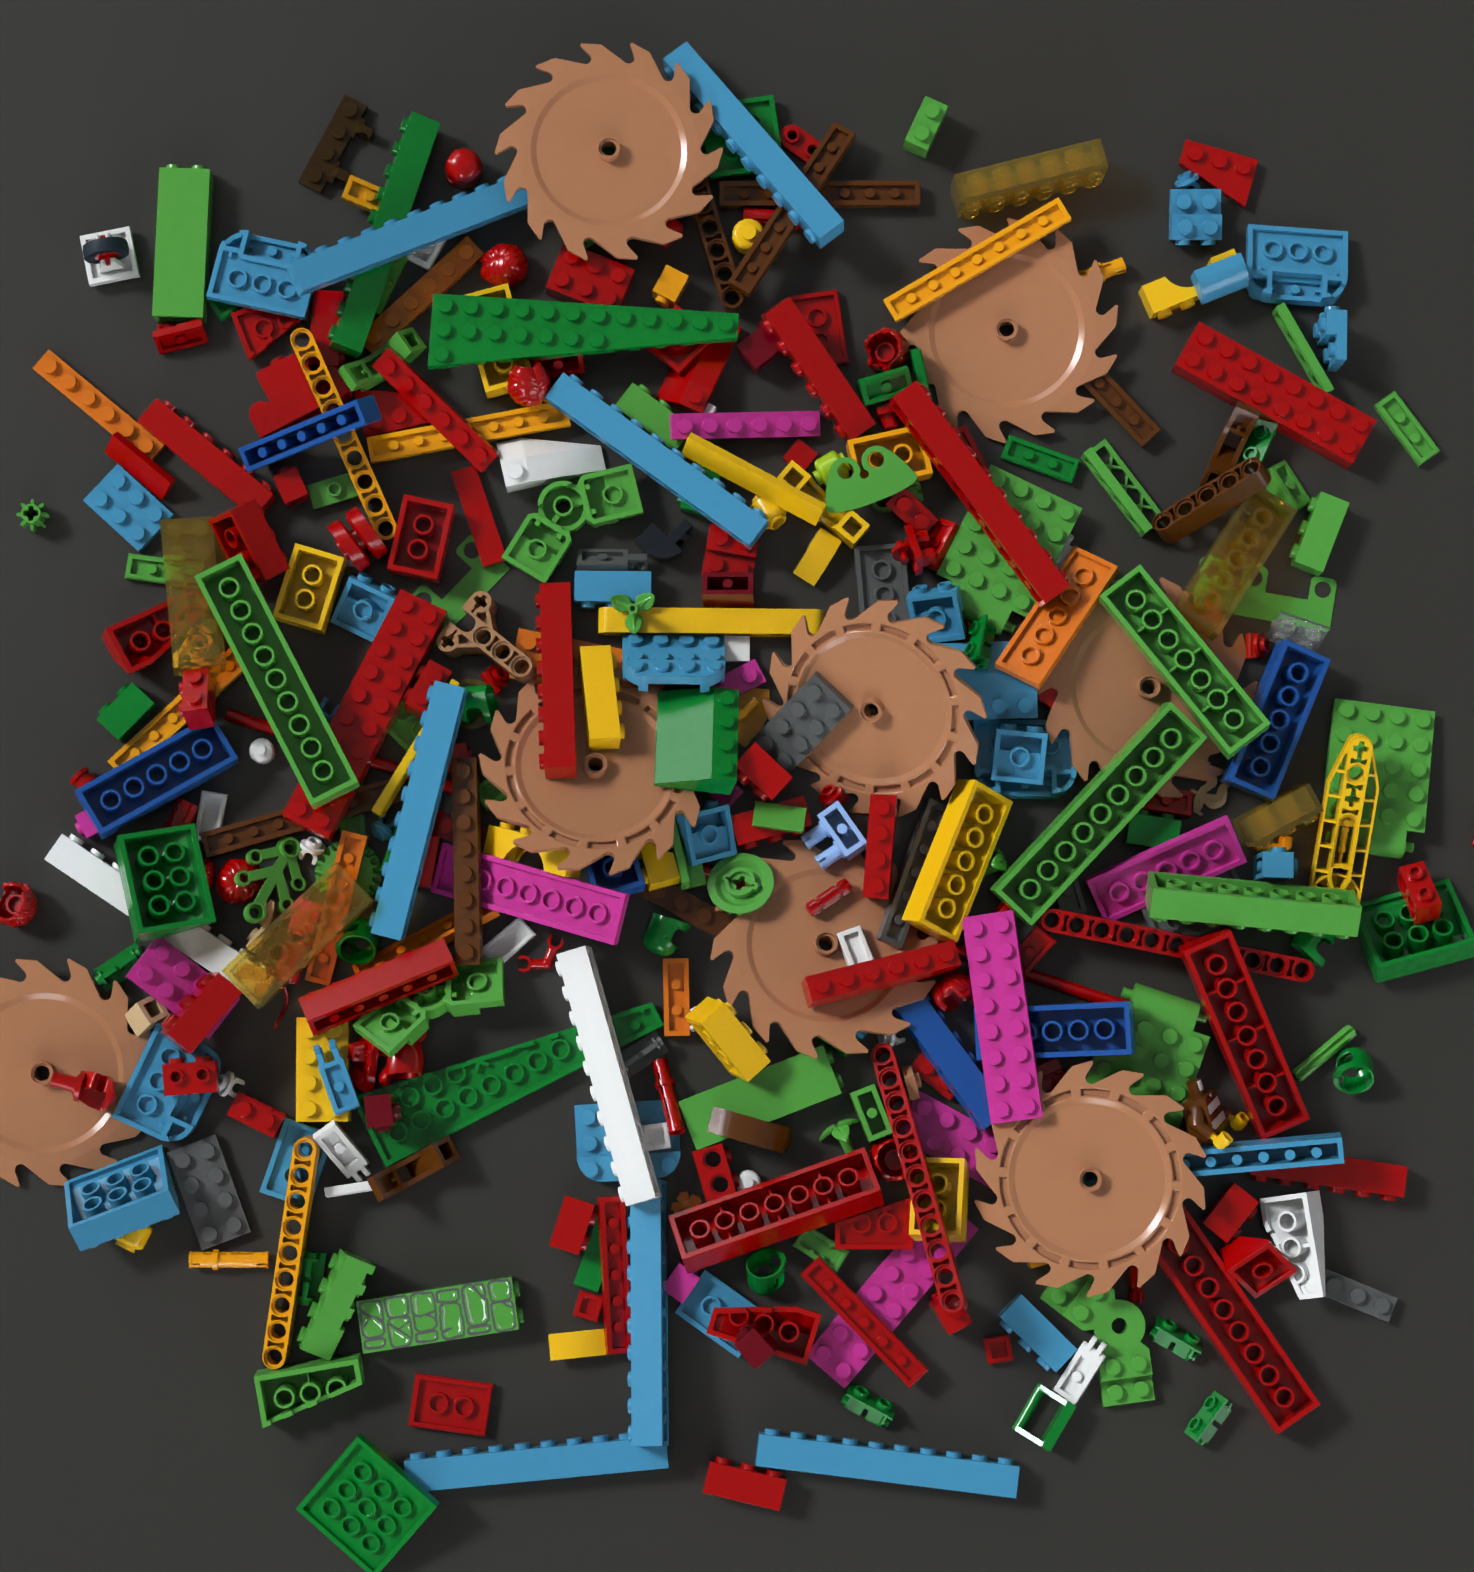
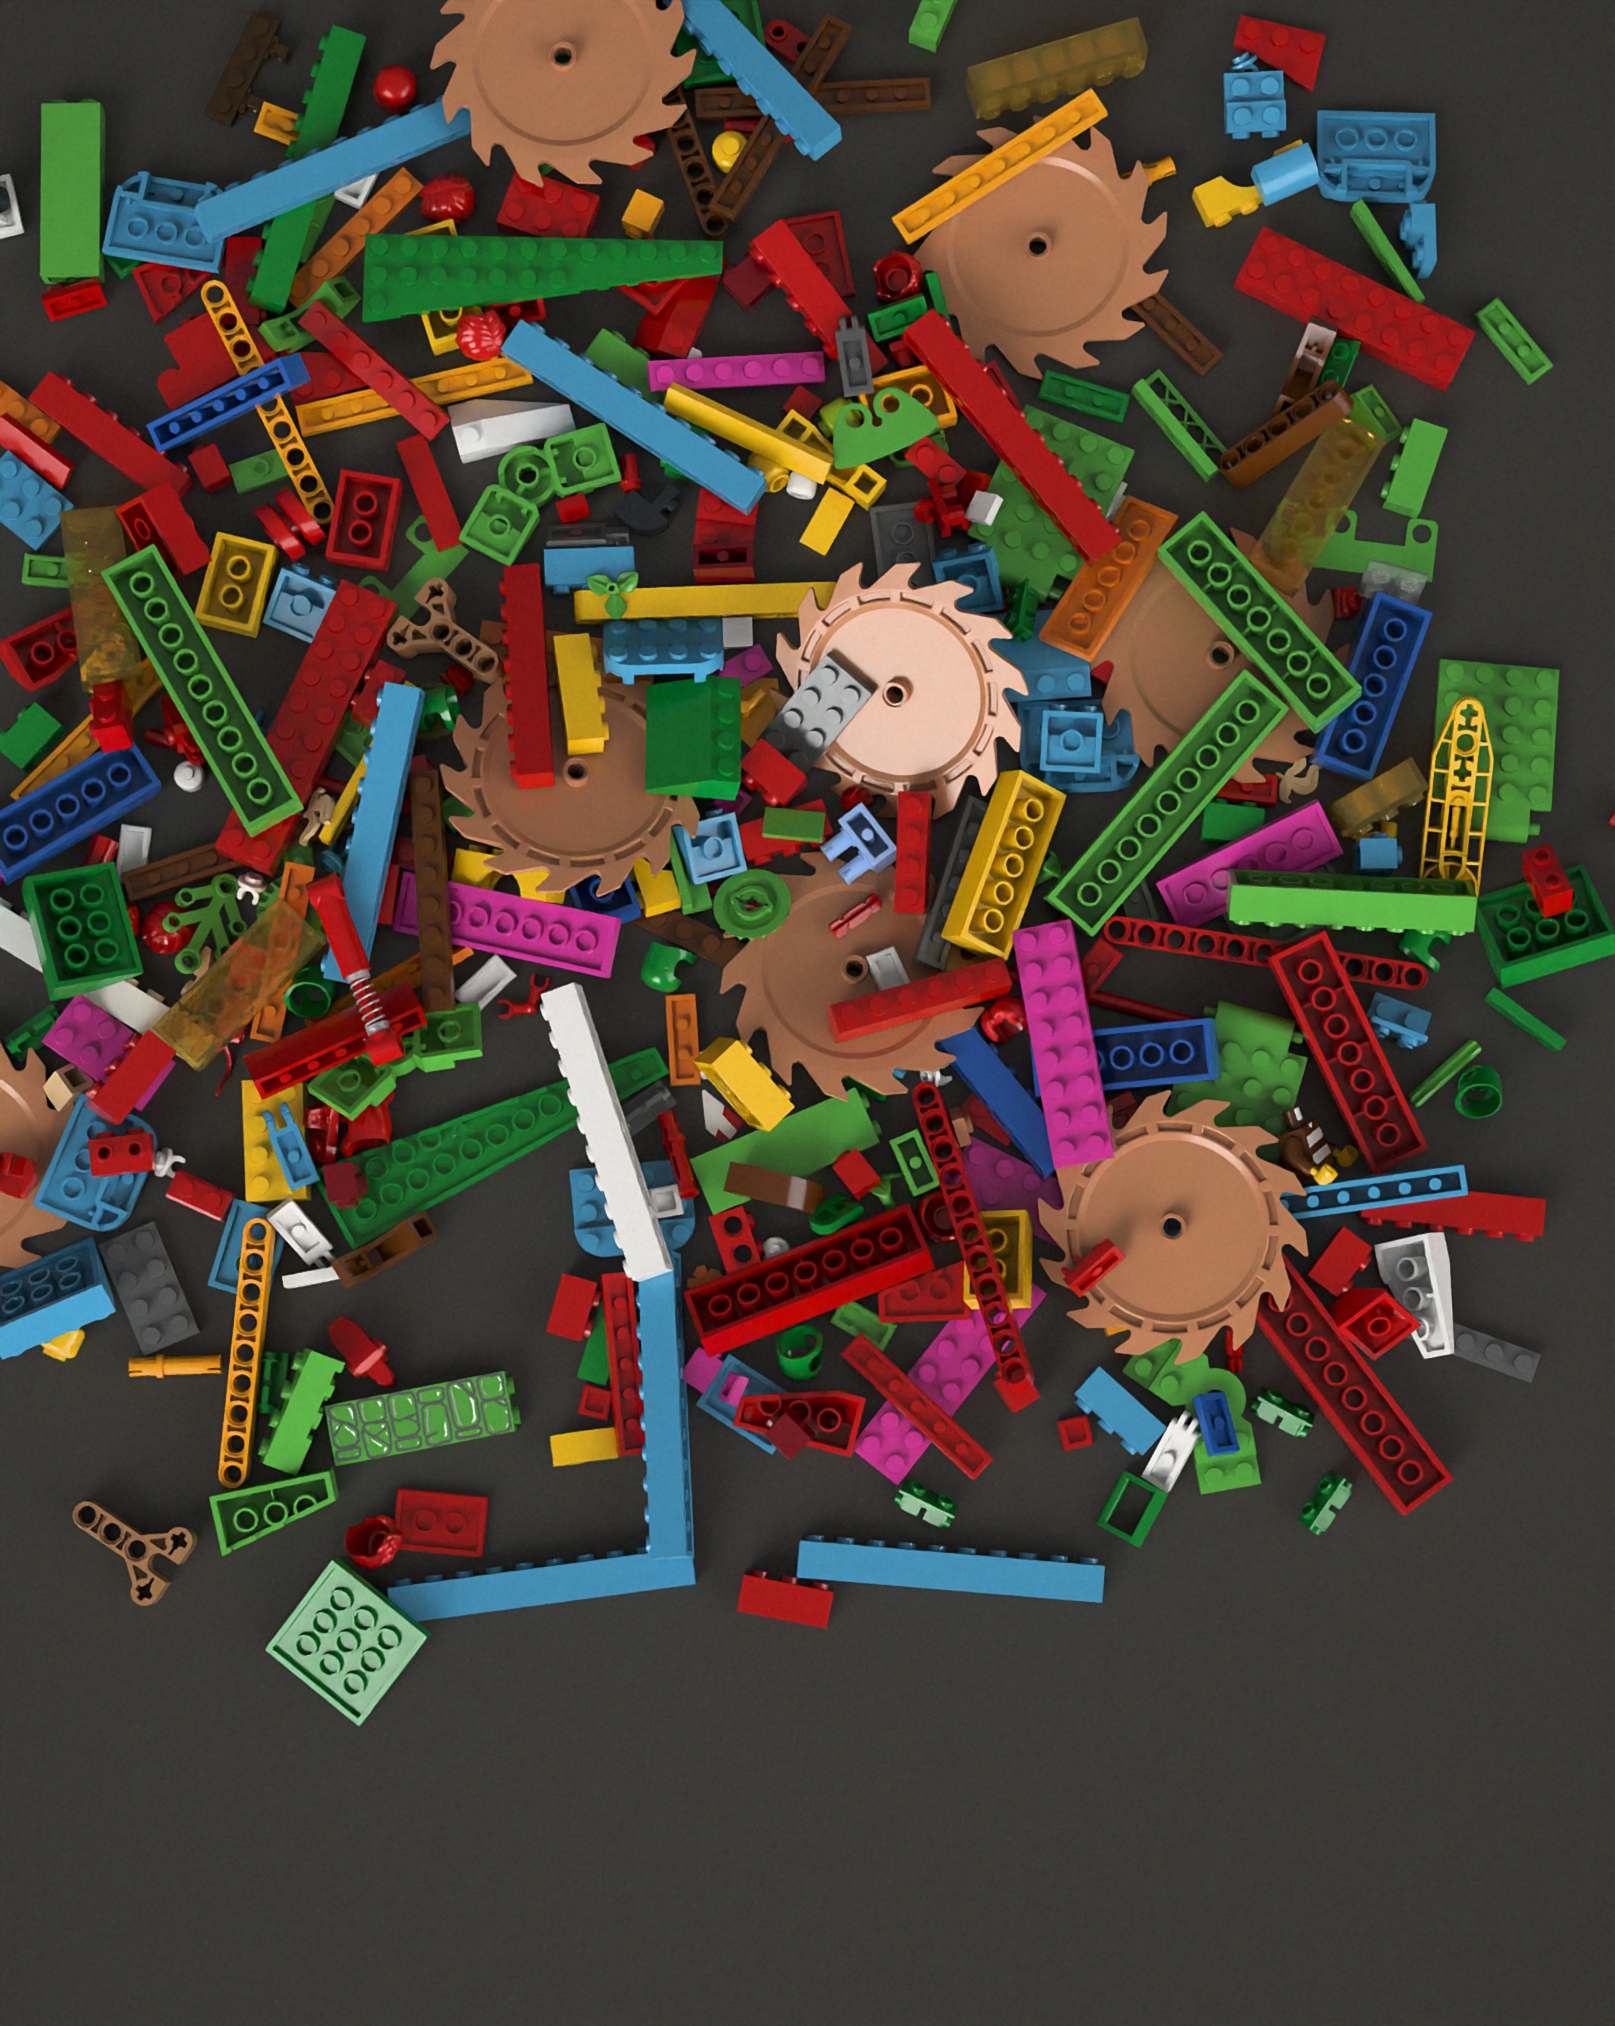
camera: 10 degrees right, 0 degrees up
(190, 1433) = (139, 1568): none -> medium nougat beam
(254, 715) = (178, 733): none -> red hinge
(371, 781) = (317, 804): none -> tan piece
(379, 868) = (329, 901): none -> red piece
(391, 1256) = (363, 1353): none -> red hinge
(392, 1420) = (373, 1542): none -> red hair
(600, 536) = (573, 508): none -> red plate
(650, 508) = (630, 473): none -> red pin
(704, 1066) = (719, 1119): none -> white sticker
(708, 1301) = (733, 1388): none -> dark pink tile
(796, 526) = (801, 486): none -> white piece
(800, 1153) = (834, 1214): none -> green plate
(820, 1119) = (856, 1173): none -> red brick
(846, 419) = (853, 358): none -> dark grey hinge
(952, 552) = (983, 508): none -> white tile
(1024, 1209) = (1095, 1266): none -> red plate
(1120, 1349) = (1216, 1424): none -> blue plate
(1287, 1006) = (1398, 1021): none -> dark azure bracket
(1394, 1010) = (1524, 1019): none -> green tile

